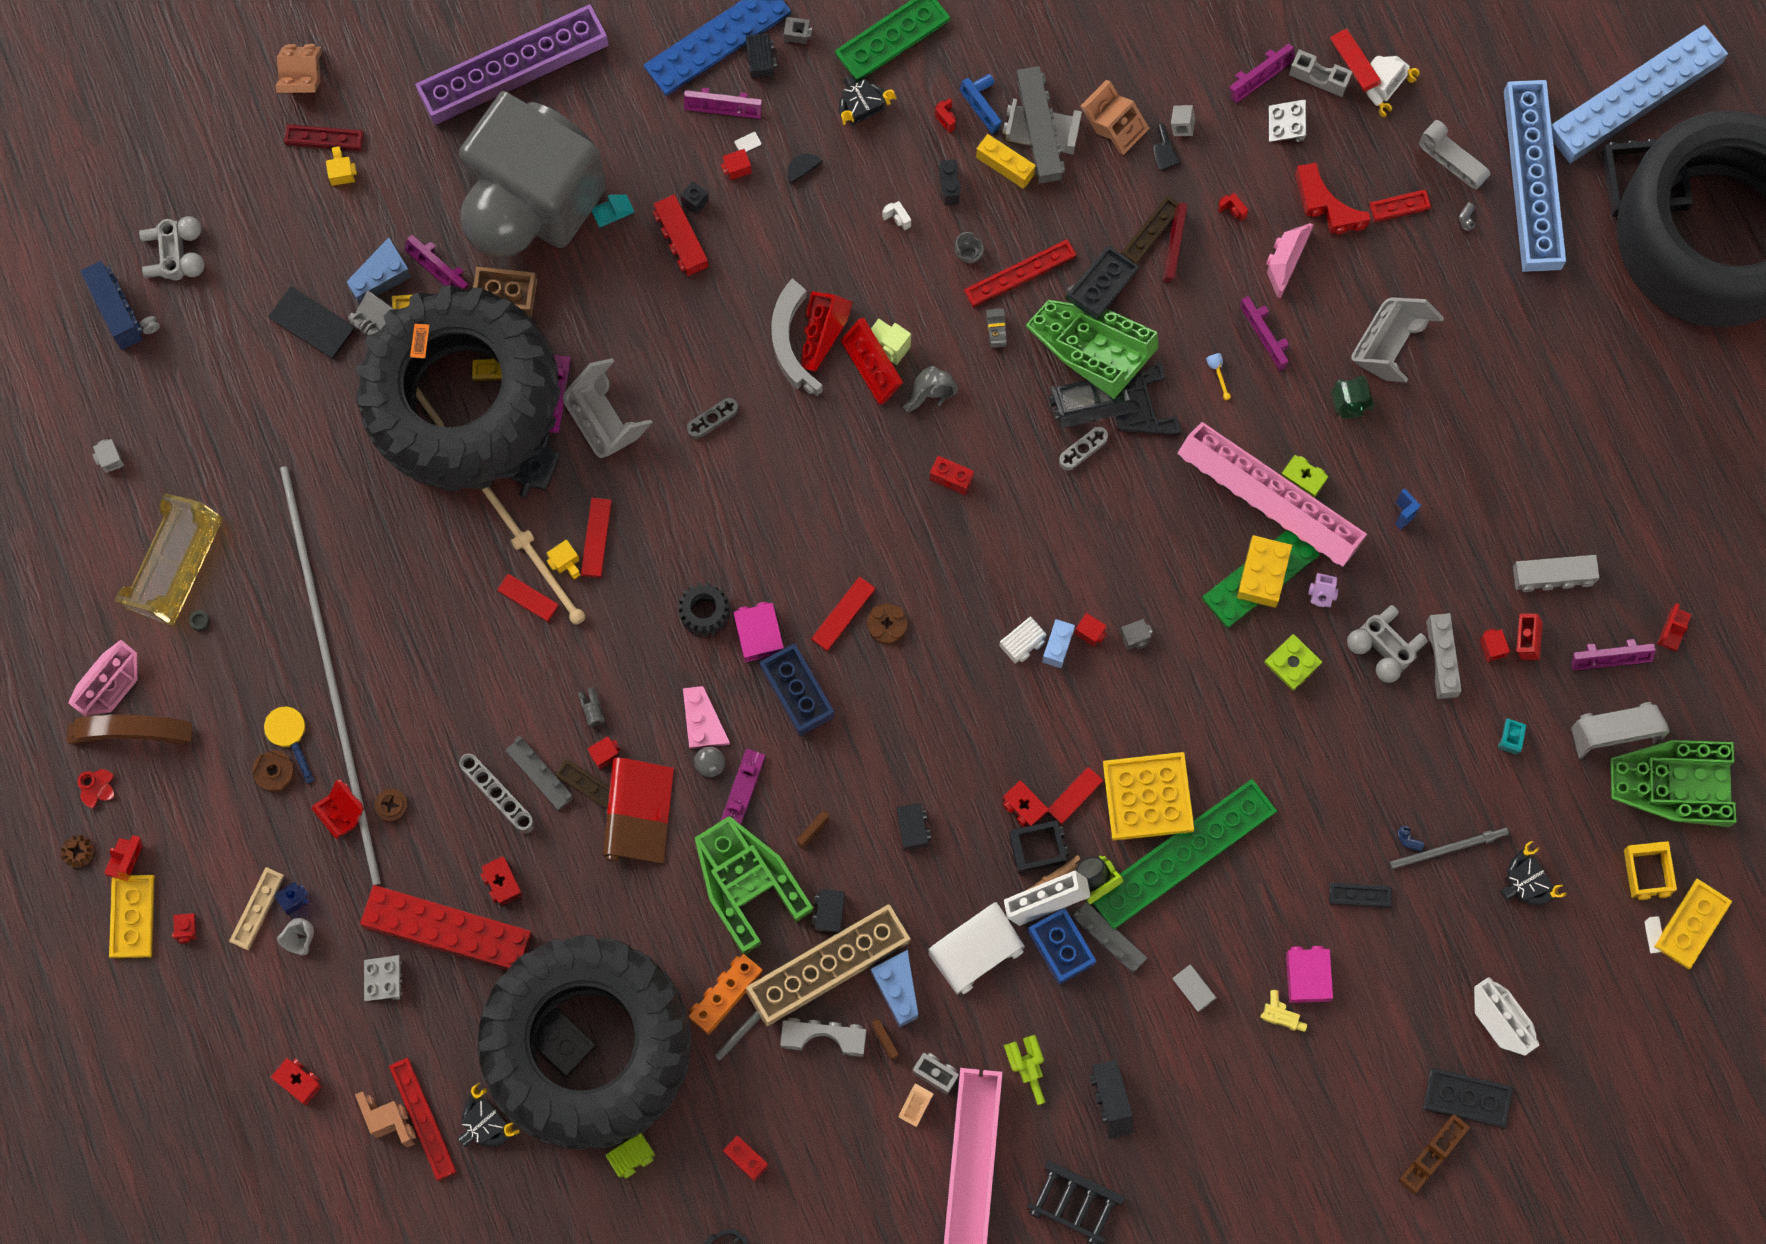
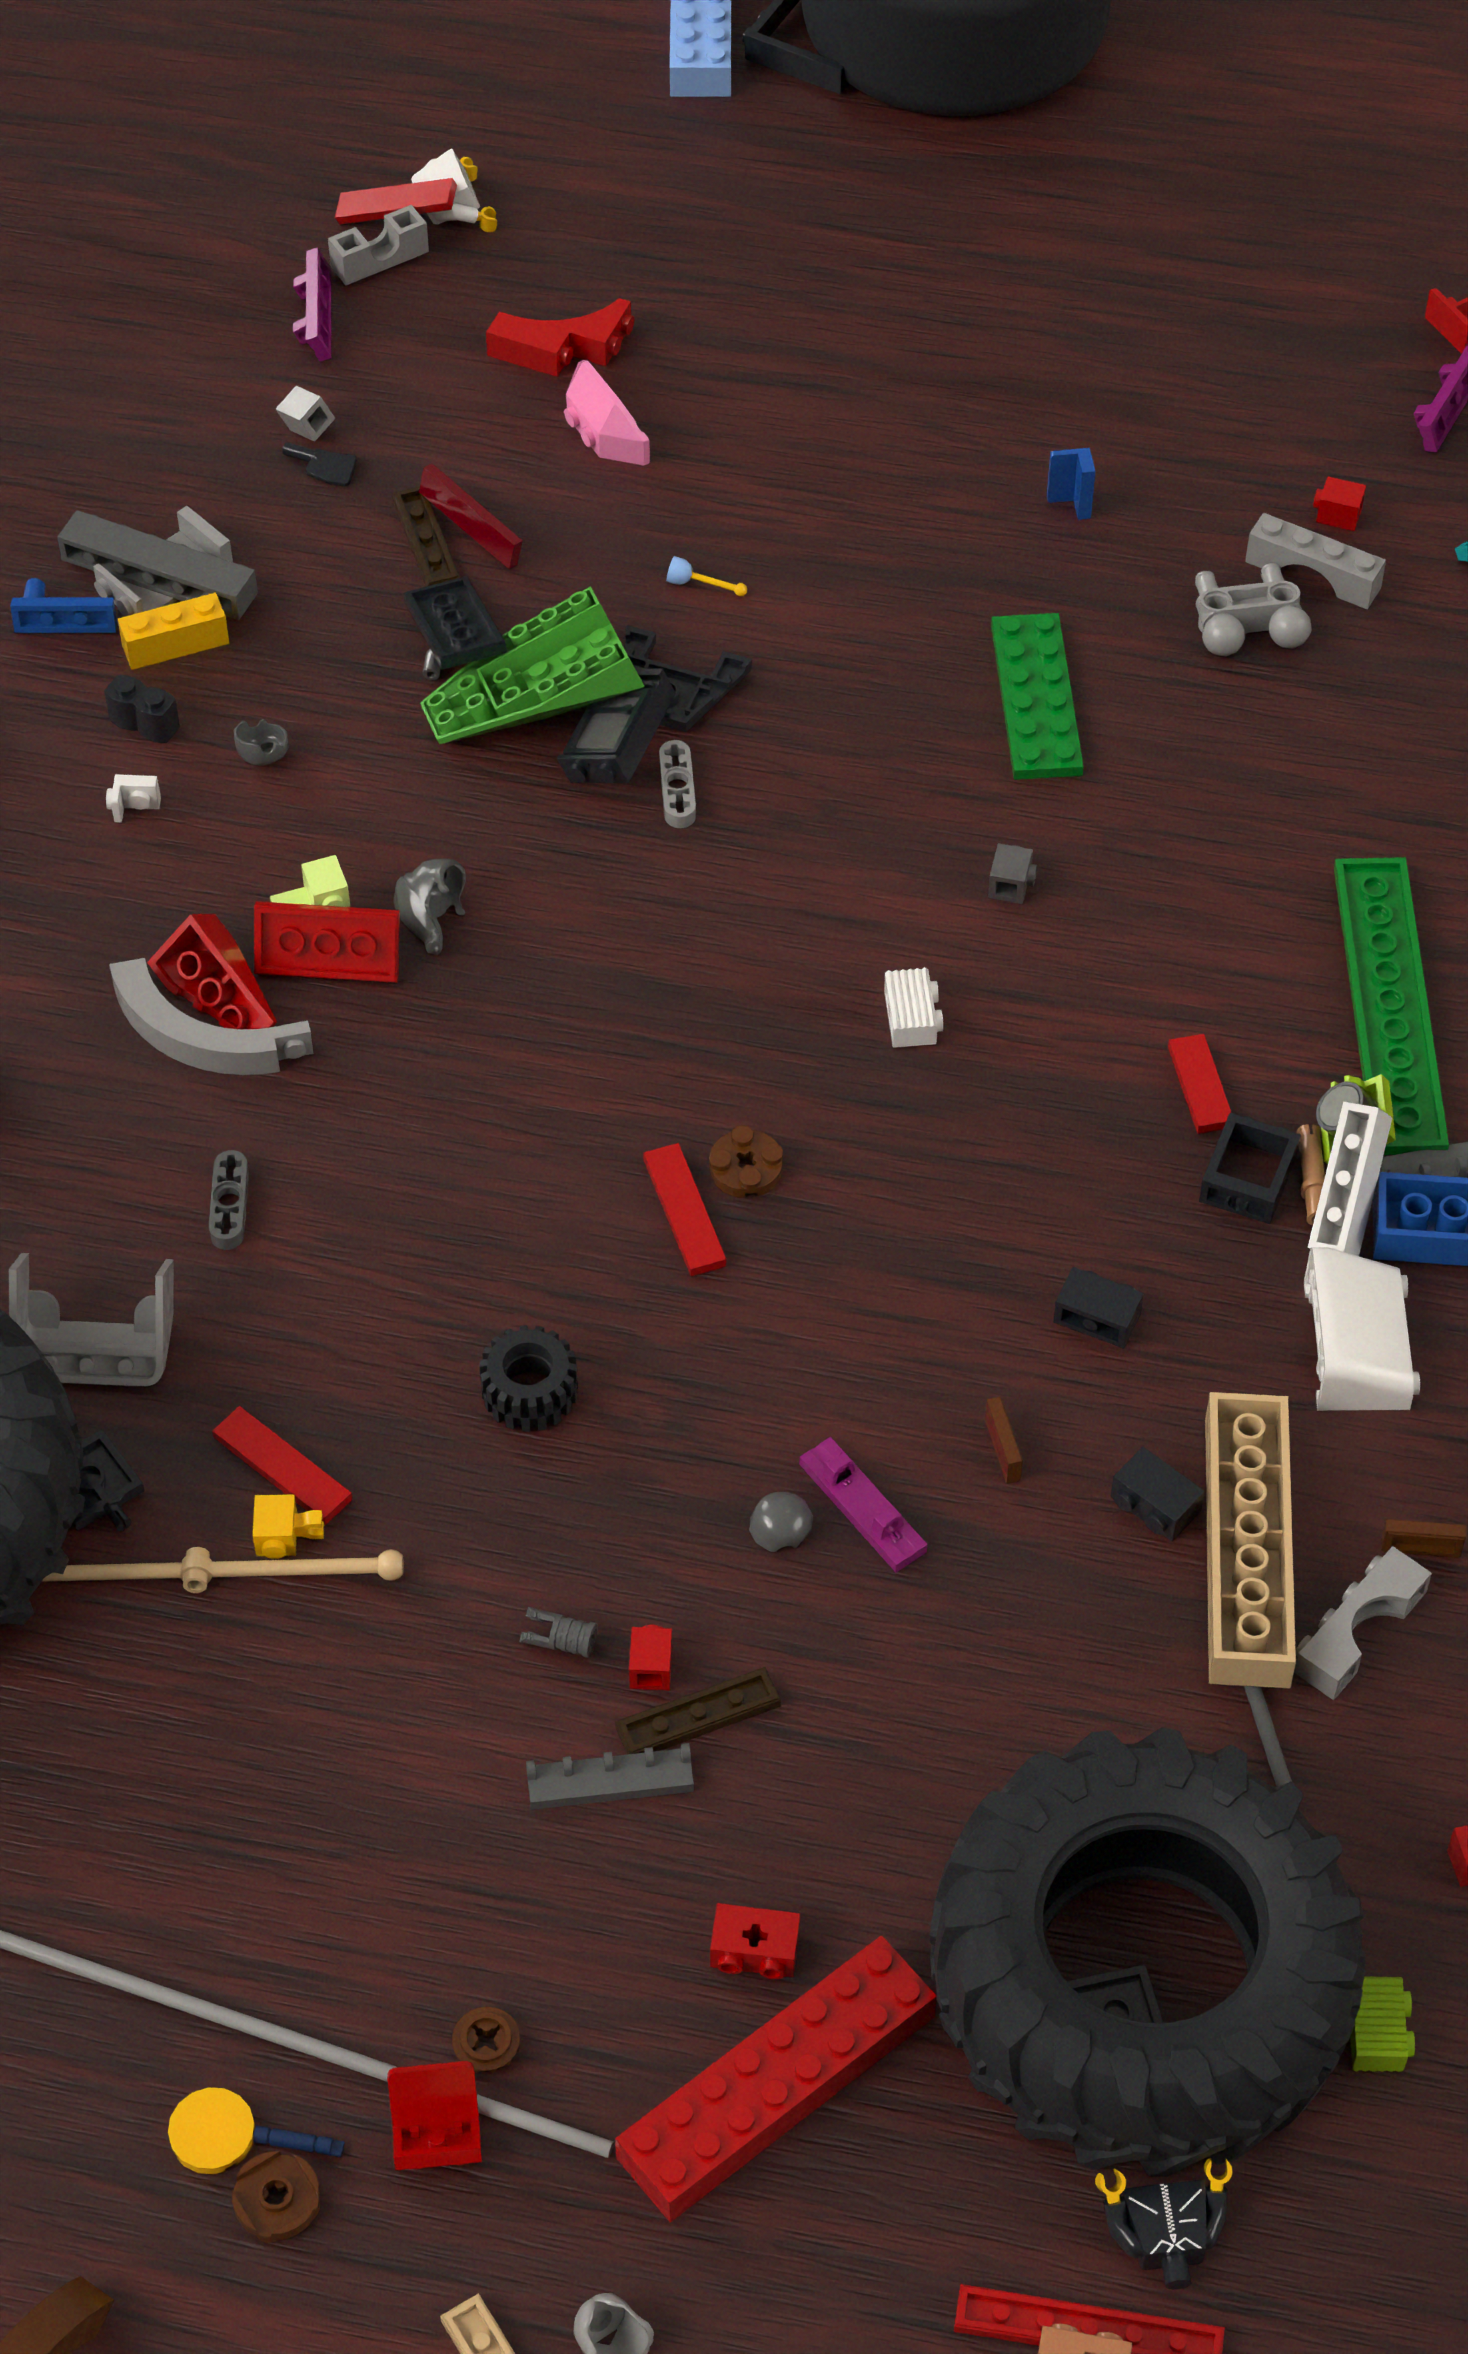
camera: 55 degrees left, 20 degrees down
(292, 897) = (531, 2302): clear blue brick -> none
(382, 978) = (788, 2238): light grey hinge -> none
(493, 784) = (581, 1872): light grey beam -> none
(528, 597) = (298, 1620): red tile -> none
(637, 811) = (786, 1666): door -> none
(702, 722) = (703, 1493): bright pink wing -> none
(725, 994) = (1184, 1693): orange brick -> none
(740, 869) = (1007, 1570): bright green wedge -> none
(758, 631) = (624, 1329): dark pink brick -> none
(797, 689) = (761, 1327): dark blue brick -> none
(897, 987) = (1351, 1471): medium blue wedge -> none
(944, 116) = (40, 662): red bracket -> none
(951, 475) = (585, 950): red brick -> none
(996, 328) = (408, 778): dark grey leg -> none
(1020, 273) = (350, 713): red tile -> none
(1022, 794) = (1171, 1146): red brick -> none
(1058, 643) = (955, 967): light blue brick -> none
(1091, 630) = (961, 920): red brick -> none
(1115, 117) = (229, 477): nougat bracket -> none
(1148, 796) = (1272, 989): yellow plate -> none
(1235, 206) = (478, 430): red bracket -> none
(1255, 317) = (687, 498): magenta hinge -> none
(1264, 571) = (1040, 670): yellow brick -> none
(1271, 494) = (932, 604): bright pink brick -> none
(1287, 121) = (410, 316): hinge -> none
(1293, 662) = (1197, 719): lime piece -> none
(1297, 468) = (933, 568): lime brick -> none
(1323, 590) = (1118, 631): lavender brick -> none
(1352, 397) = (865, 452): clear green brick -> none
(1388, 334) = (793, 367): light grey windscreen -> none
(1400, 205) = (635, 273): red tile -> none
(1452, 156) = (615, 188): light grey beam -> none
(1465, 219) = (710, 224): flat silver arm -> none
(1529, 636) = (1359, 458): red brick -> none
(1534, 176) = (721, 124): light blue brick -> none
(1555, 573) = (1286, 391): light grey brick -> none

